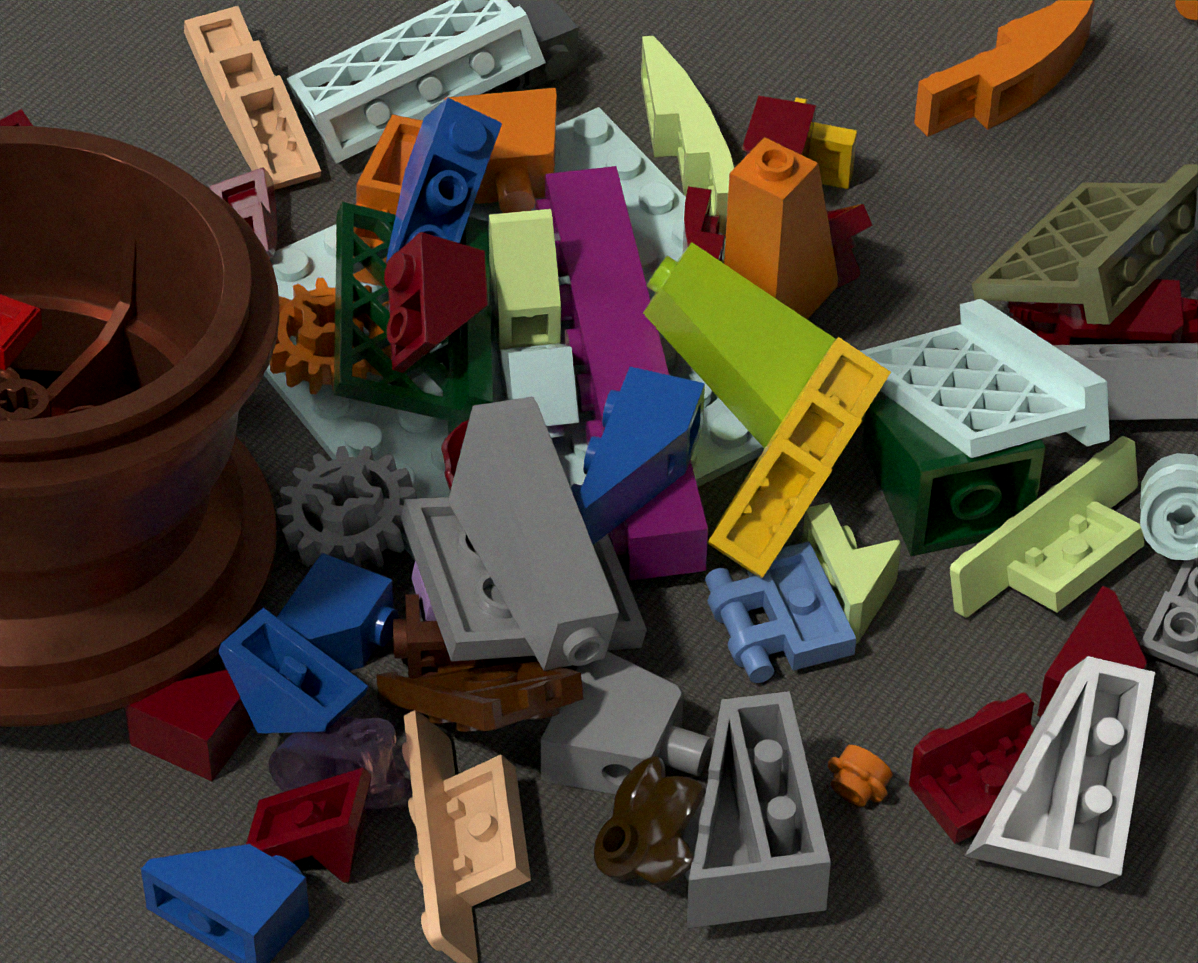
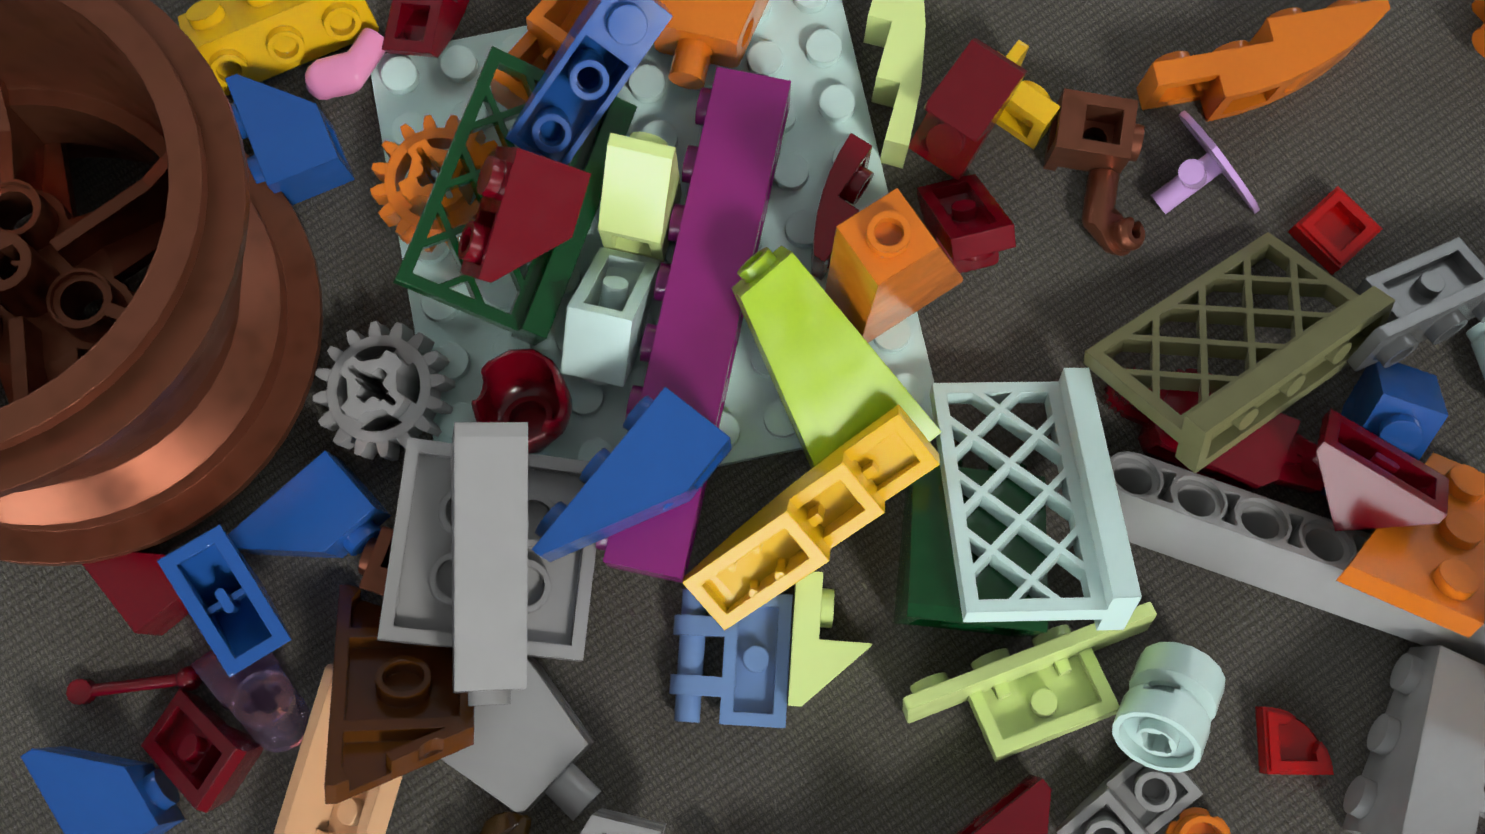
camera: 25 degrees right, 30 degrees up
(157, 843) = (85, 690): none -> dark red hinge
(894, 151) = (1097, 116): none -> copper brick
(952, 220) = (1103, 220): none -> copper arm
(1005, 134) = (1195, 173): none -> lavender shield
(1138, 162) = (1335, 230): none -> red tile

